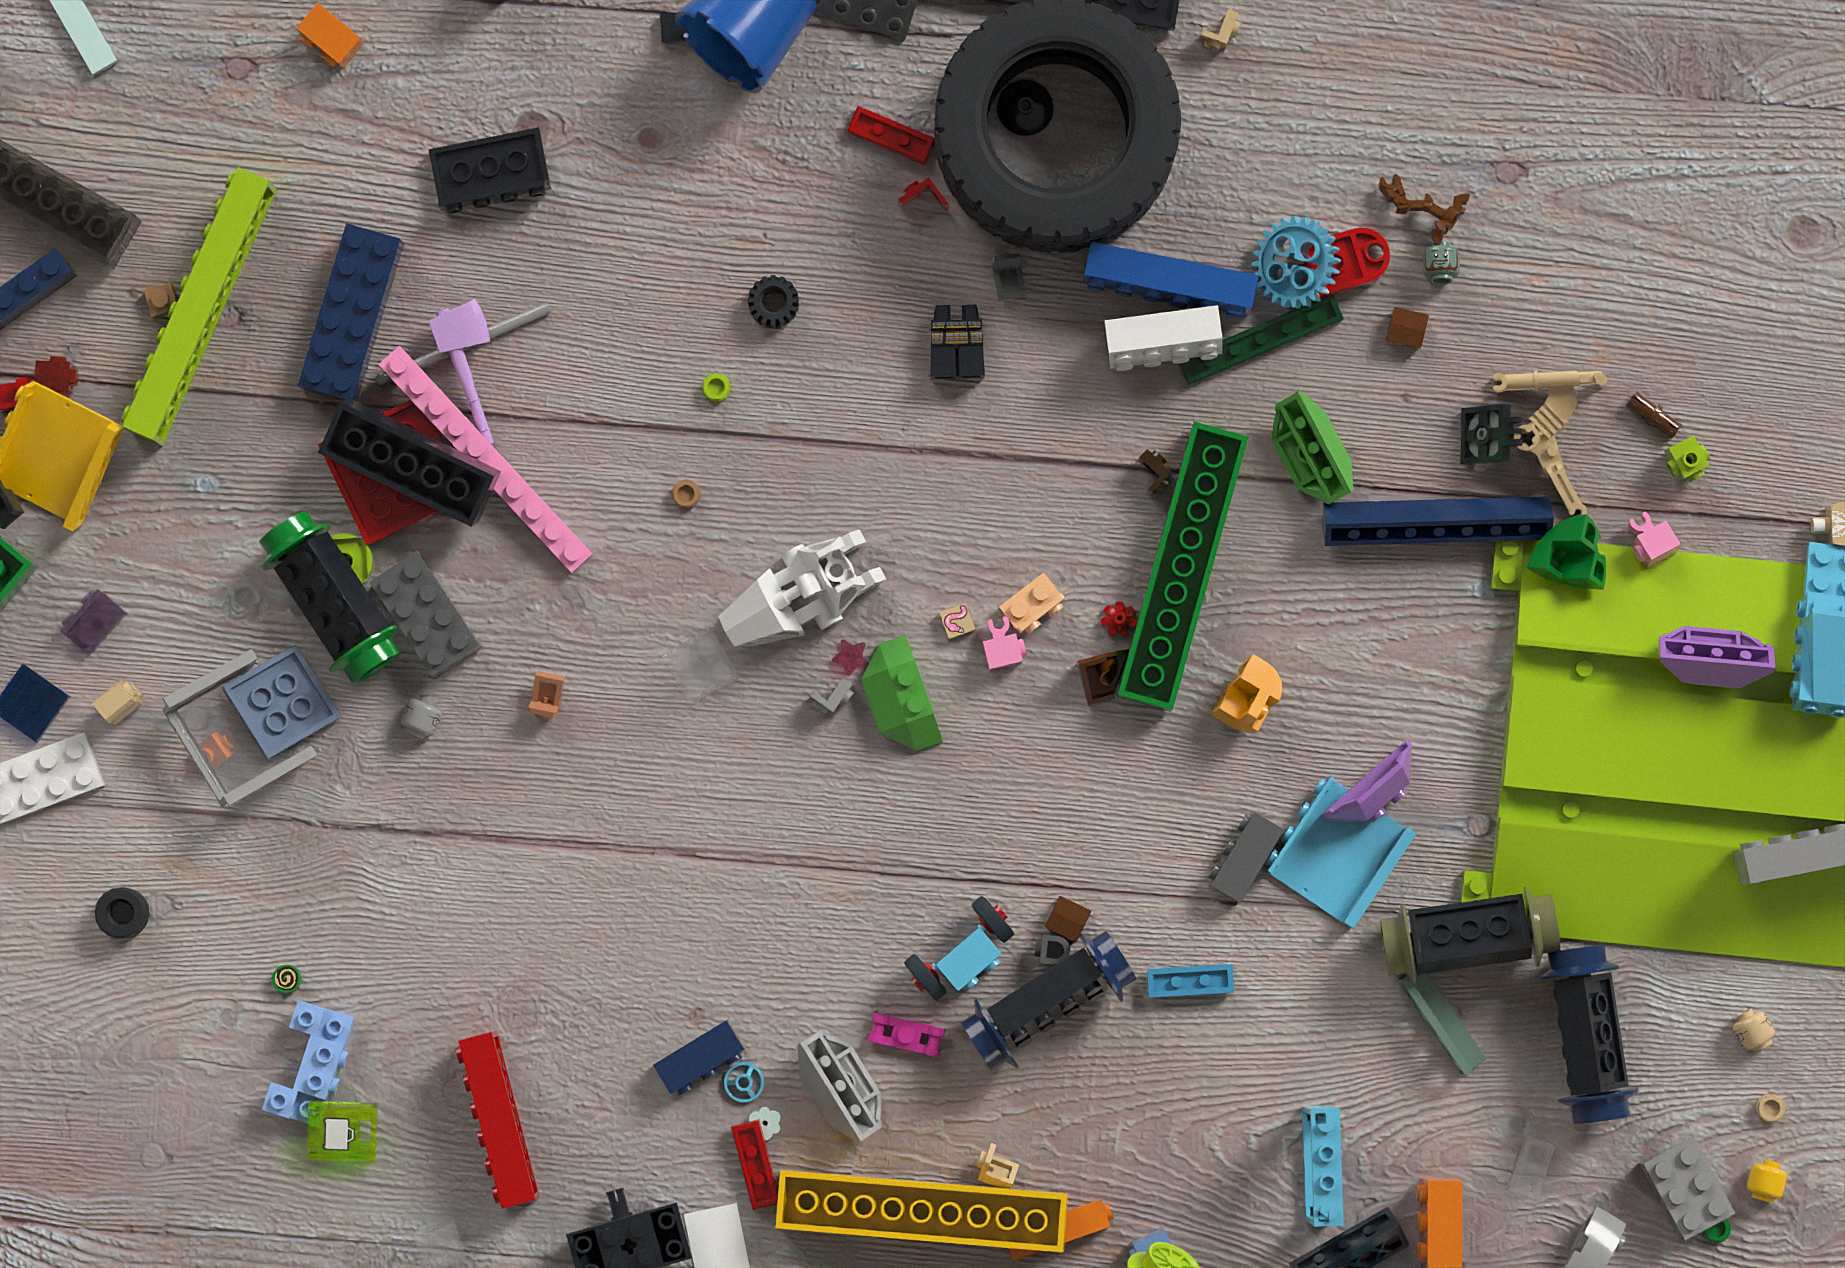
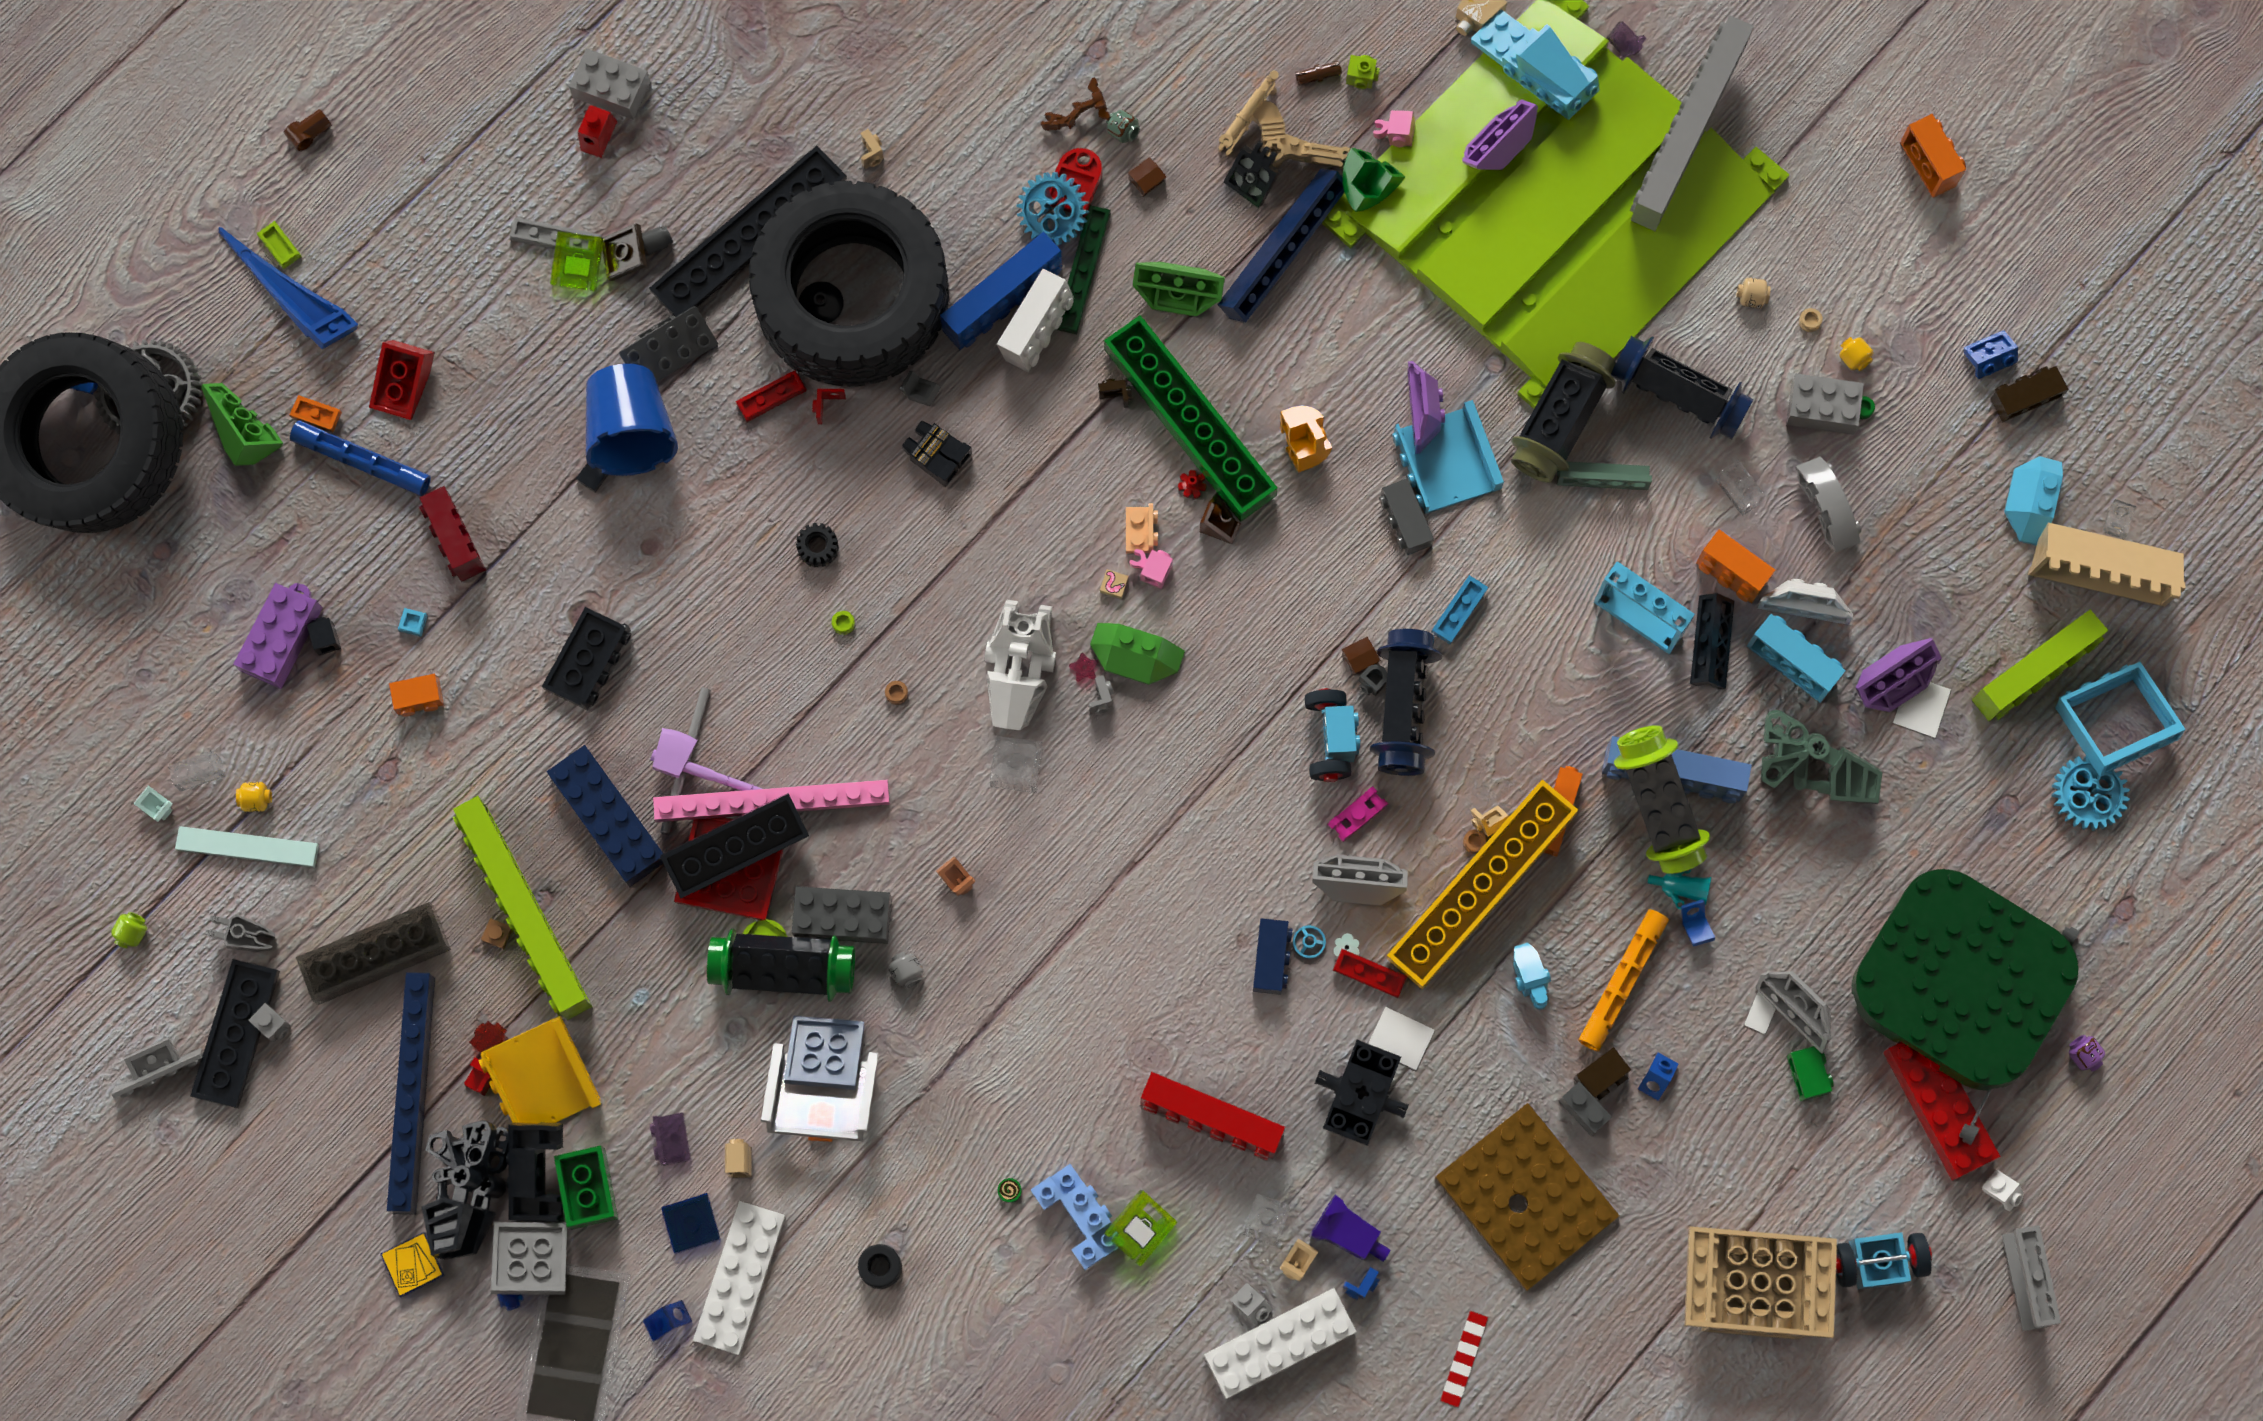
camera: 50 degrees left, 10 degrees down
(965, 1169) = (1474, 841): none -> medium nougat tile

